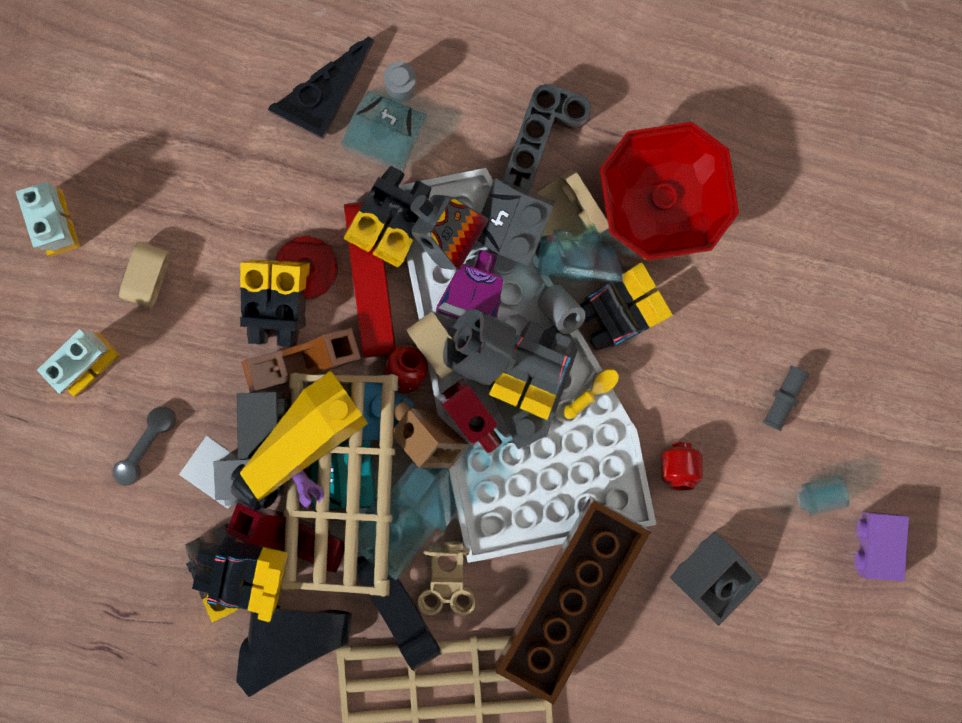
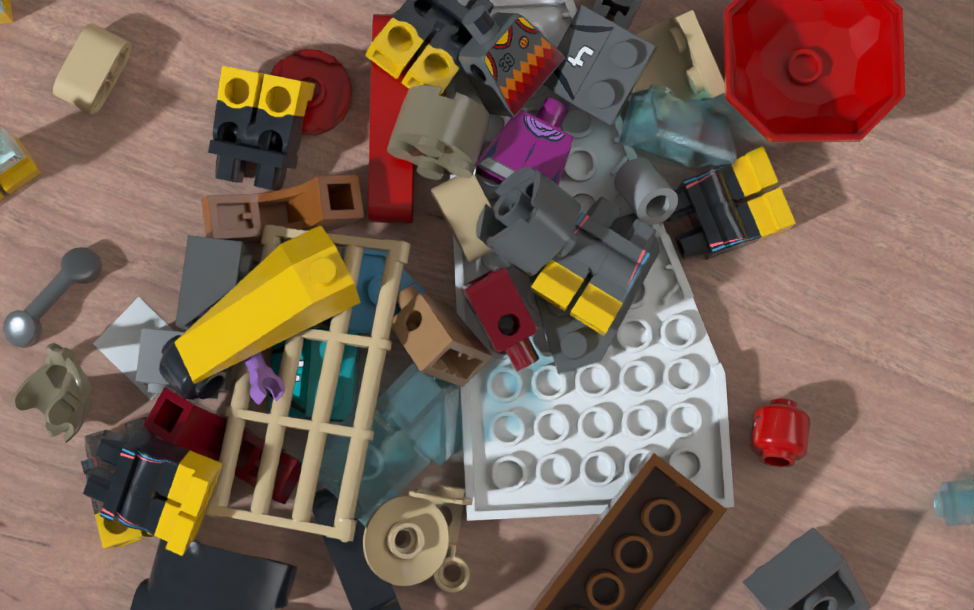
camera: 10 degrees right, 5 degrees down
(160, 515) = (57, 394): none -> dark tan helmet
(406, 290) = (439, 132): none -> dark tan brick
(409, 366) = (429, 240): red head -> none
(438, 590) = (424, 543): none -> tan dish
(602, 383) = (687, 301): yellow piece -> none
(786, 398) = (934, 361): dark grey pin -> none

